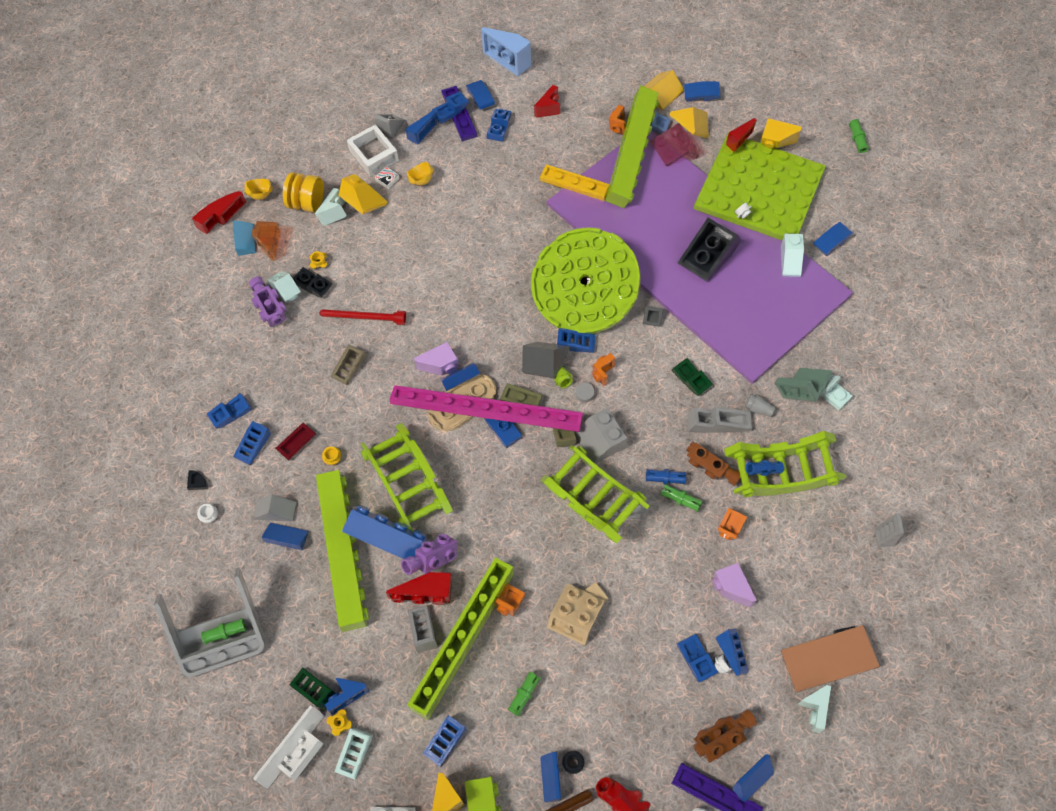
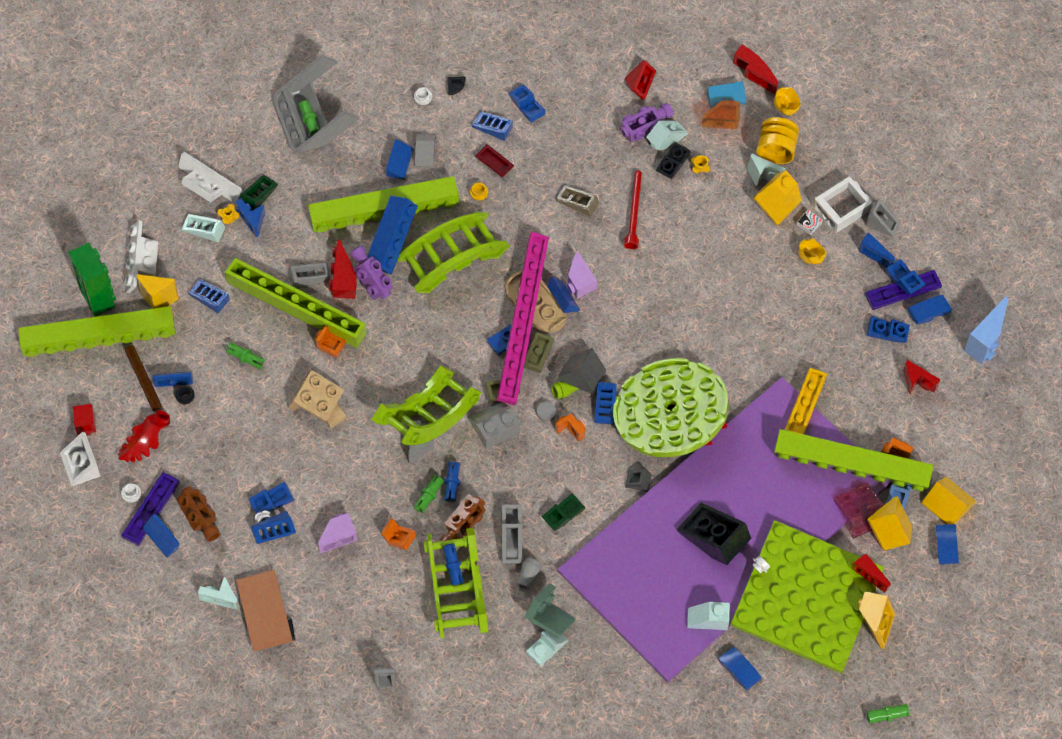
camera: 85 degrees right, 0 degrees up
(214, 310) = (641, 78): none -> red slope

